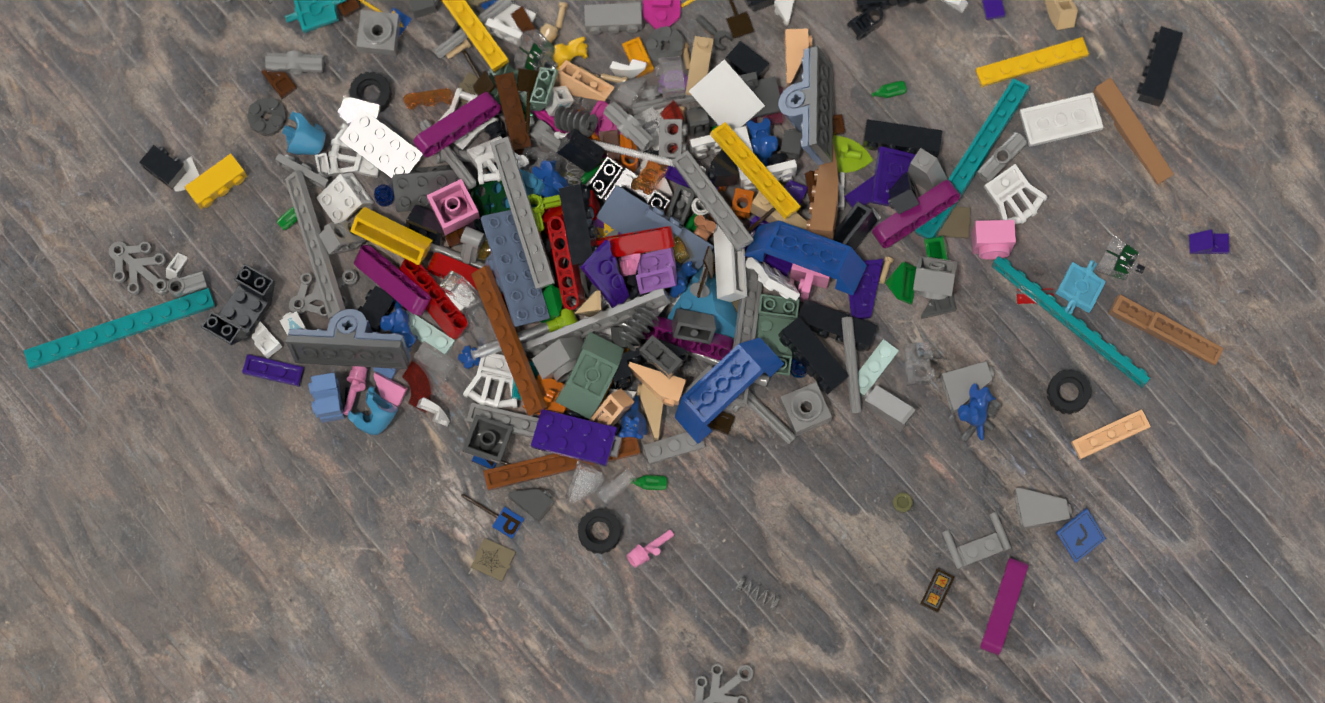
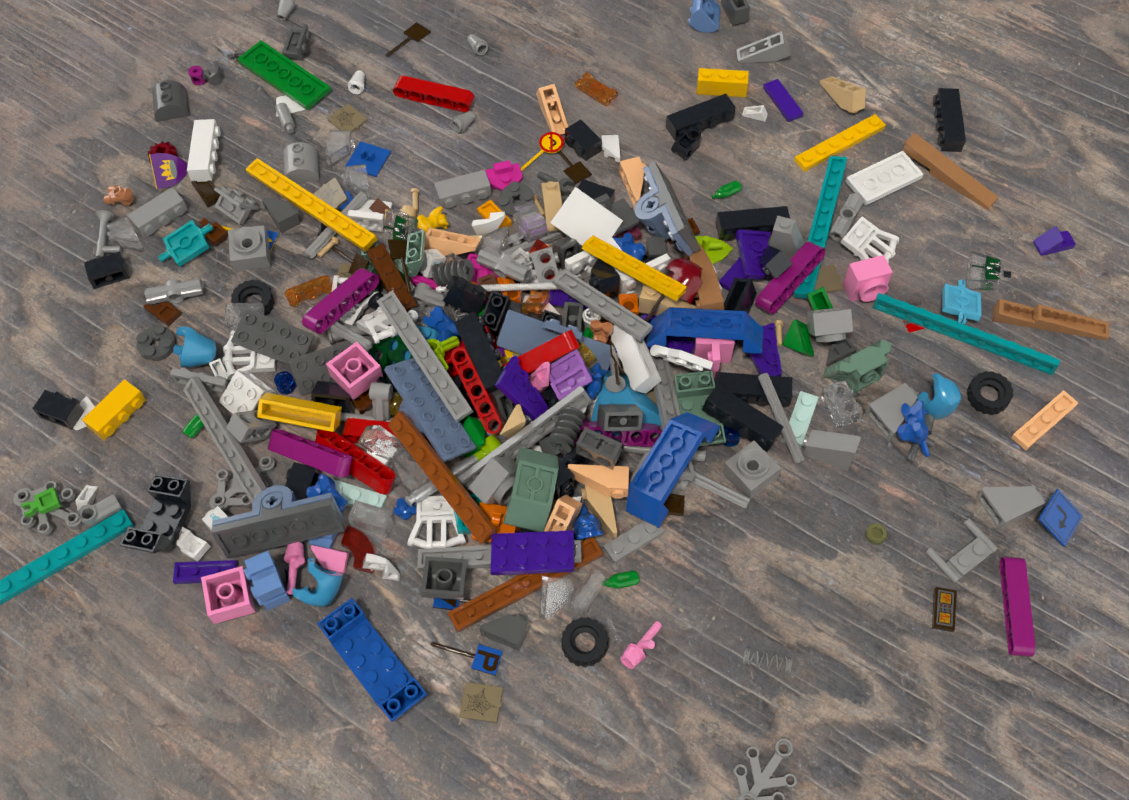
camera: 15 degrees left, 15 degrees down
(138, 263) = (44, 503): none -> bright green plate
(231, 19) = (106, 270): none -> black brick
(280, 392) = (224, 607): none -> bright pink piece
(405, 496) = (371, 660): none -> blue slope
(805, 189) = (688, 274): none -> dark red brick
(950, 331) = (862, 367): none -> sand green slope
(1019, 387) = (945, 400): none -> dark azure piece

